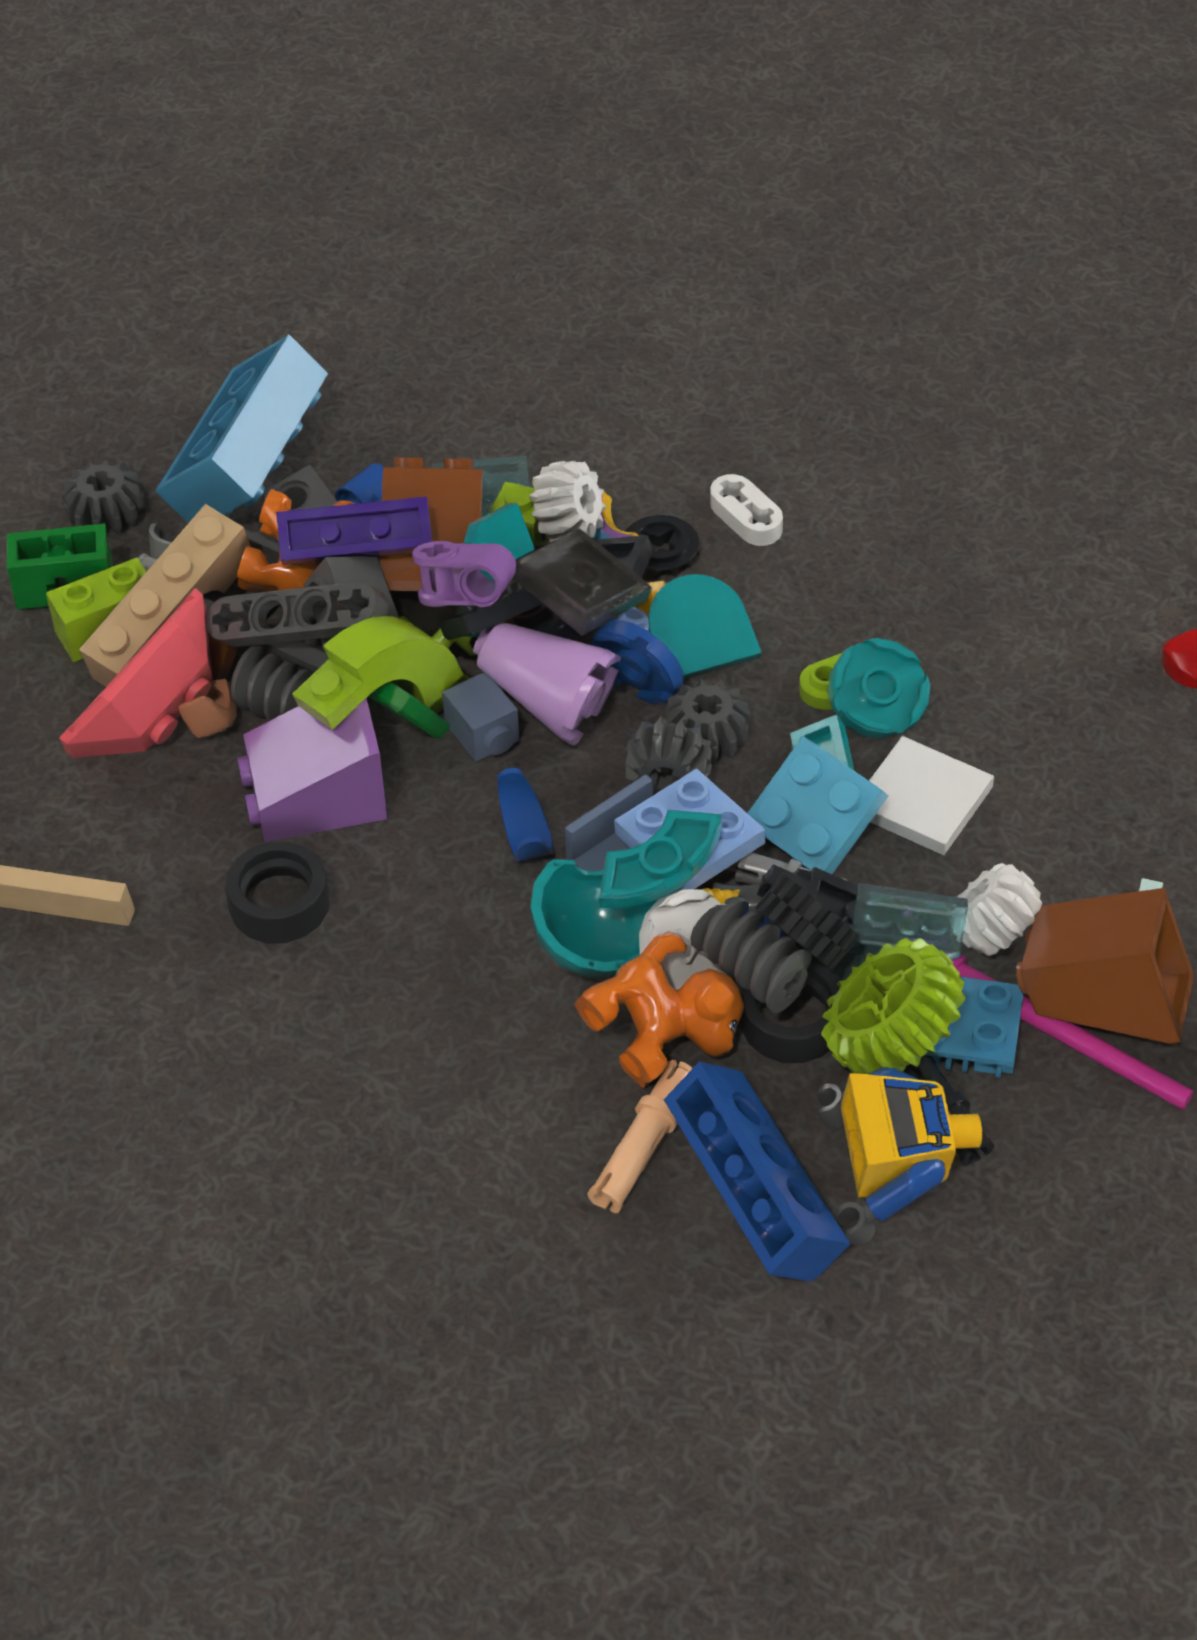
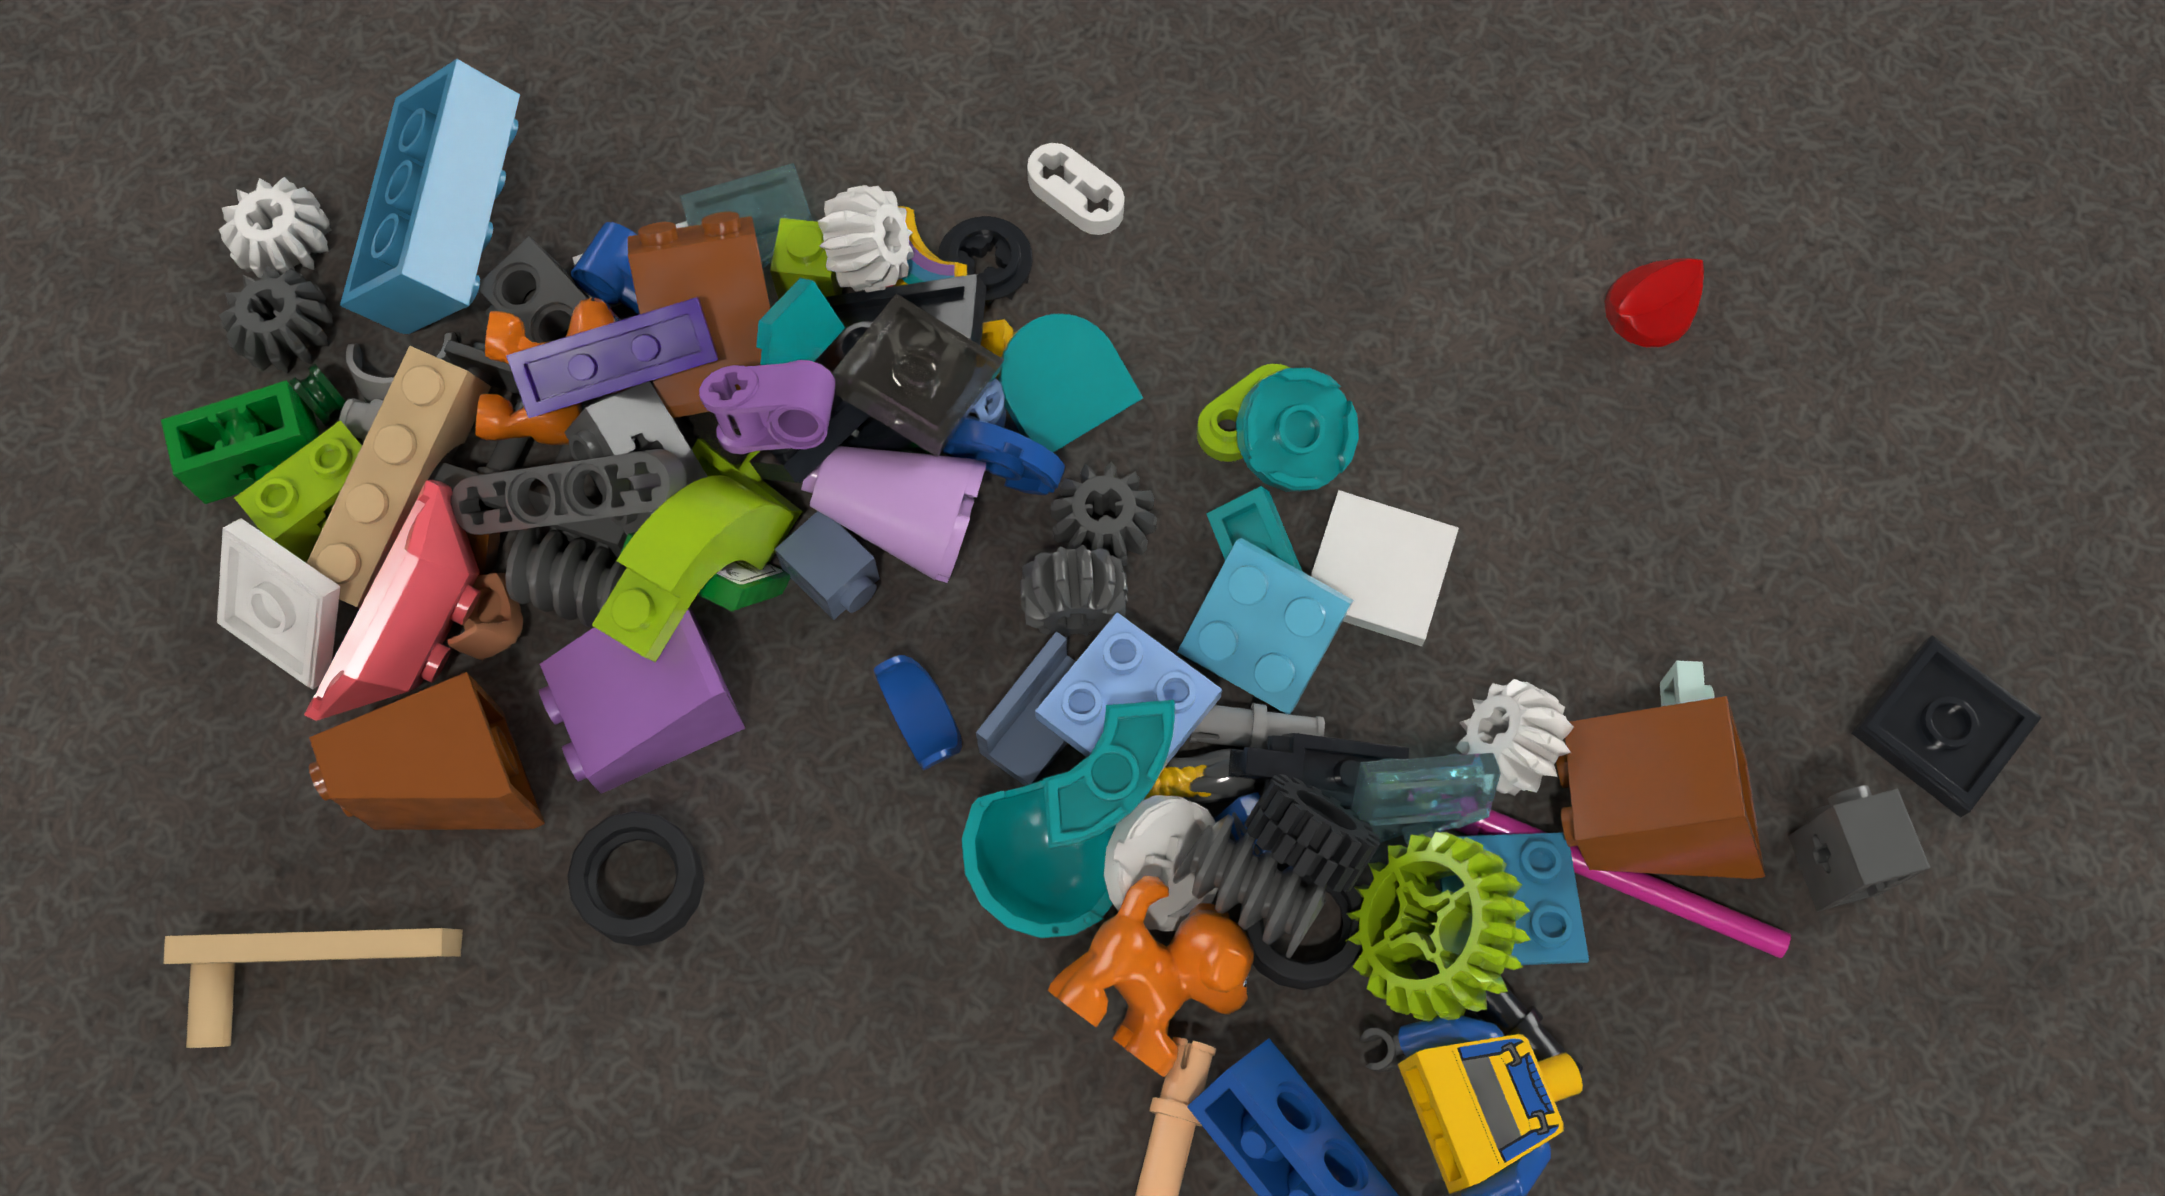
camera: 15 degrees left, 20 degrees up
(57, 665) = (277, 603): none -> white tile
(120, 437) = (275, 228): none -> white gear
(123, 546) = (319, 394): none -> dark green bush
(140, 783) = (428, 764): none -> dark orange slope

